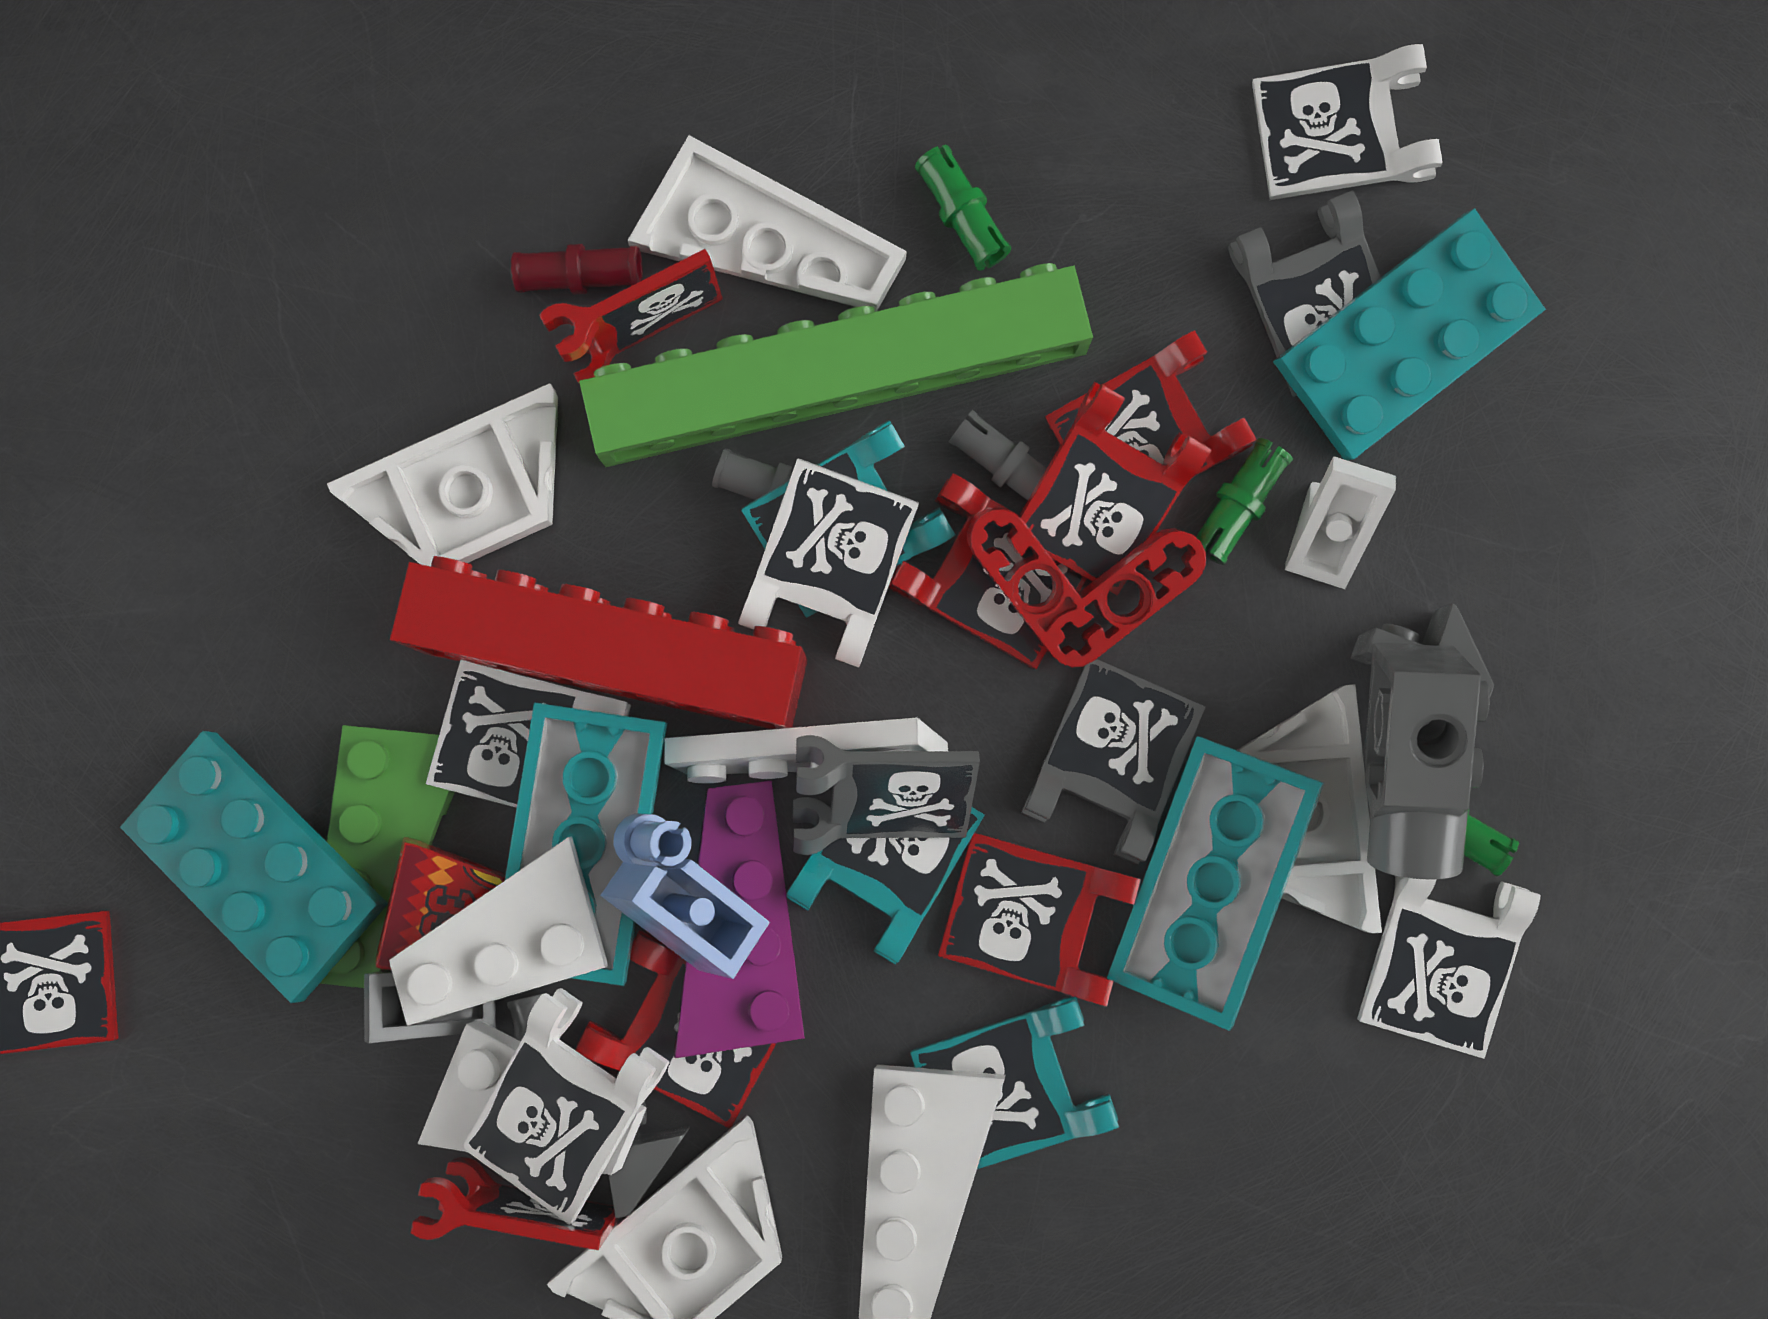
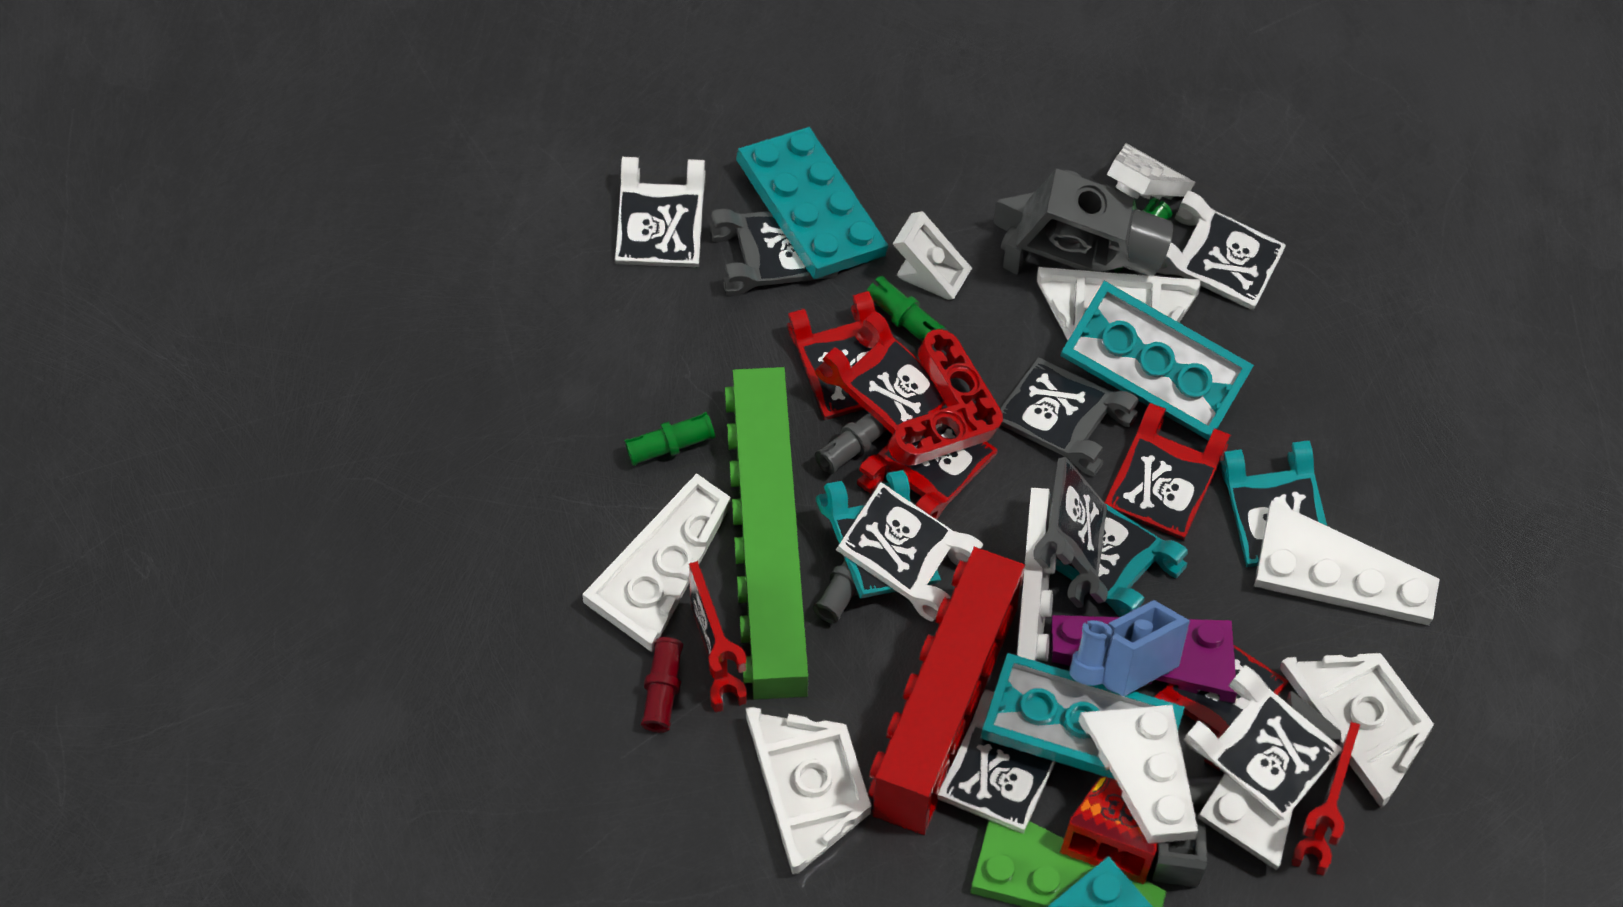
camera: 80 degrees left, 25 degrees down
(1539, 822) = (1146, 177): none -> white wing

